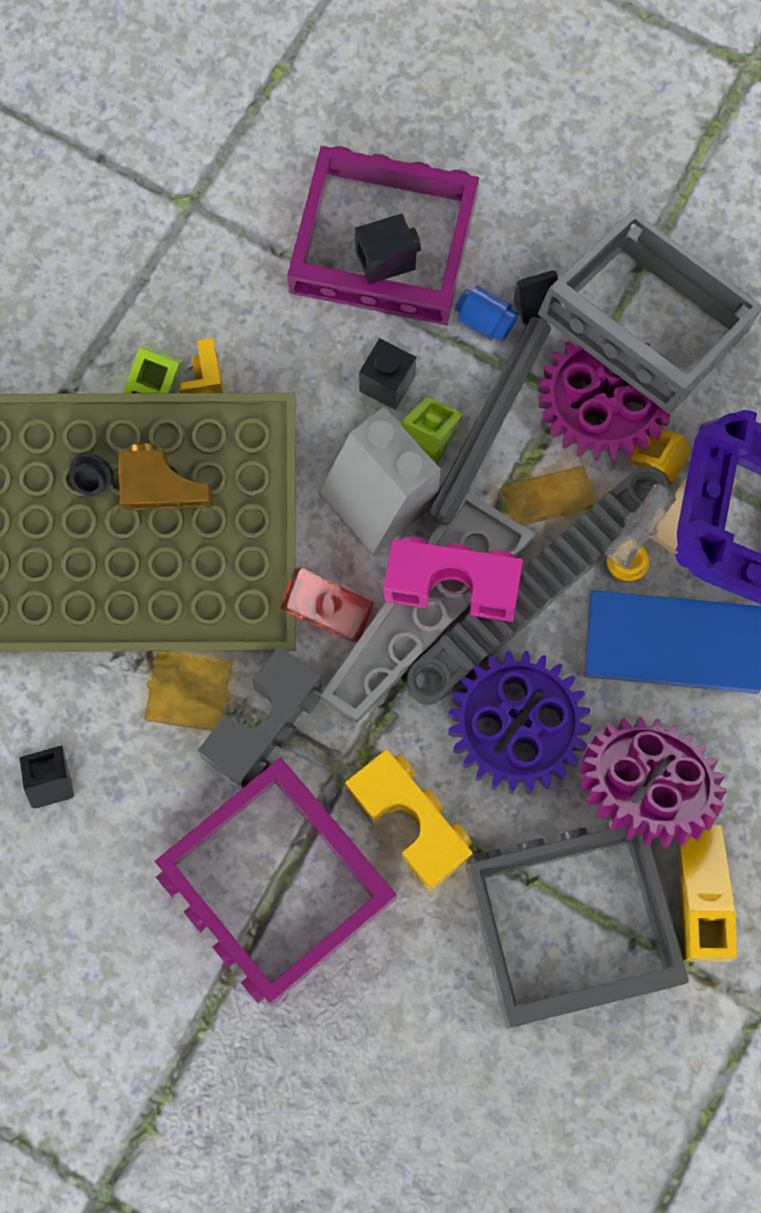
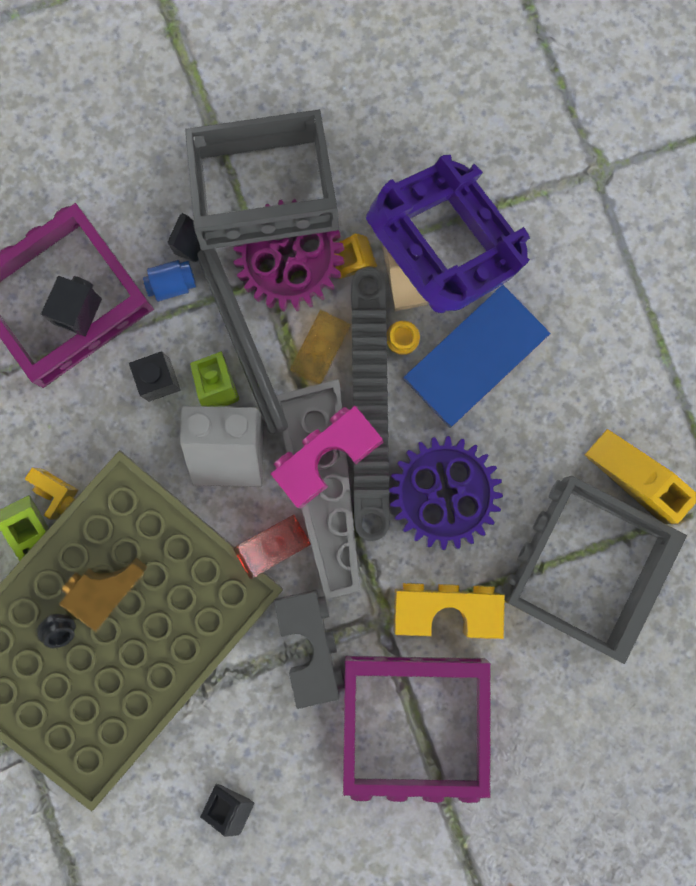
camera: 50 degrees left, 10 degrees up
(188, 690) = (249, 675): clear yellow piece -> none
(641, 526) = (392, 312): clear pin -> none
(676, 804) = (587, 442): magenta gear -> none

